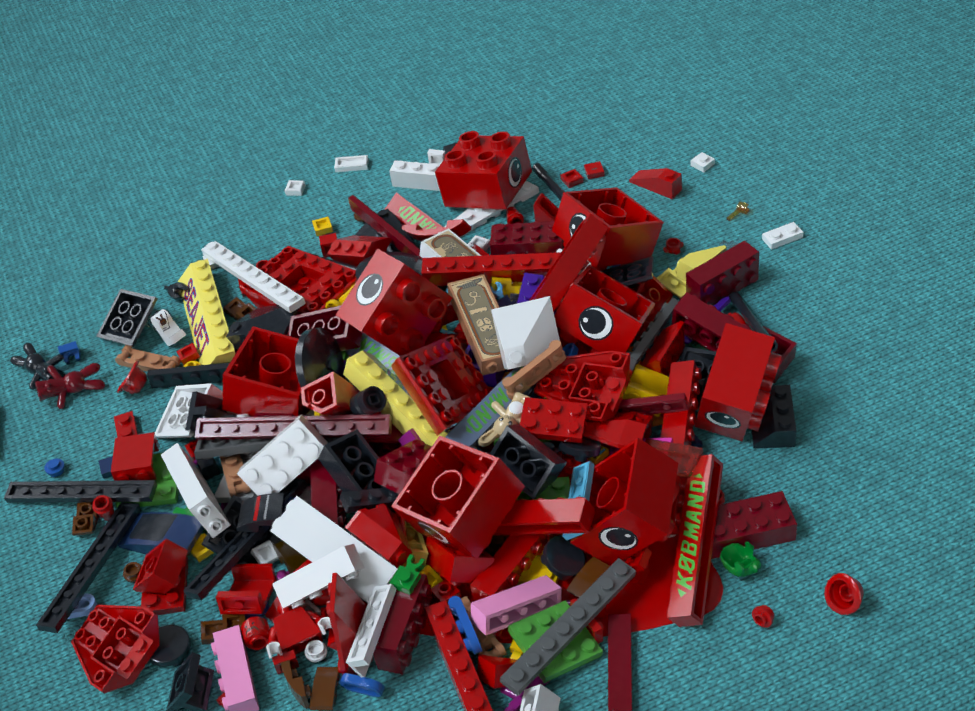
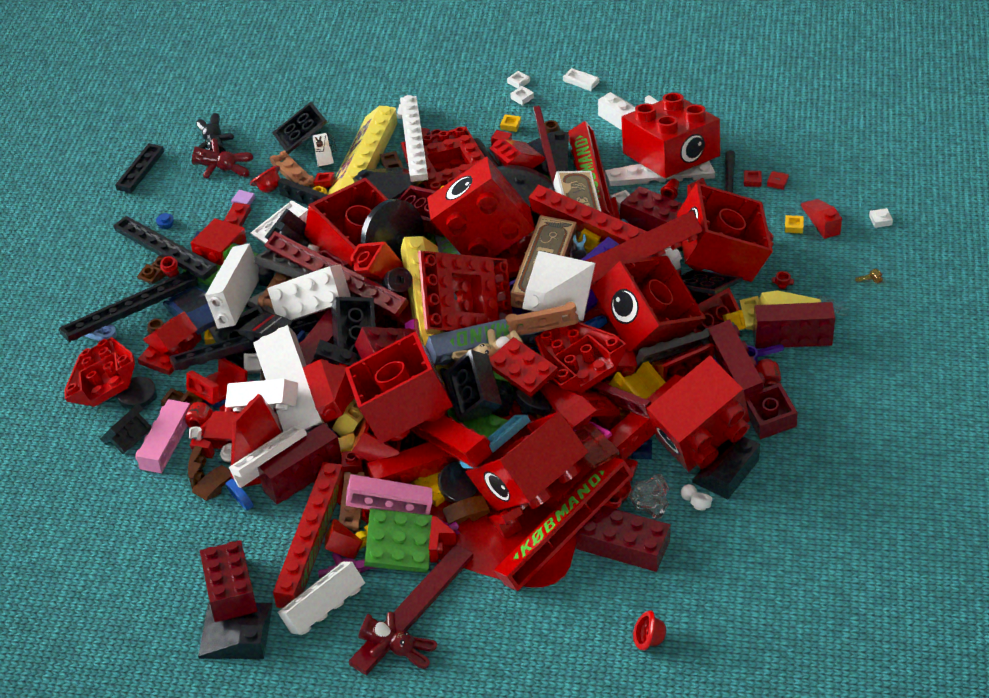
camera: 30 degrees right, 0 degrees up
(68, 350) = (242, 133): blue tile -> none
(118, 407) = (243, 197): none -> lavender tile
(175, 290) = (356, 123): black hand -> none
(311, 198) = (522, 95): none -> white plate
(407, 577) = (323, 429): green plate -> none
(457, 226) = (599, 173): slope -> none
(464, 625) = (339, 490): blue plate -> none
(567, 627) = (412, 532): dark grey plate -> none
(642, 196) = (794, 224): none -> yellow plate
(666, 295) = (736, 317): none -> yellow tile
(739, 303) = (762, 393): black piece -> none
(739, 476) = (650, 496): none -> clear brick
(740, 559) = (590, 559): green hair -> none
(763, 616) = (570, 612): red plate -> none
(778, 459) = (699, 500): none -> white plate
(782, 235) = (889, 317): white plate -> none

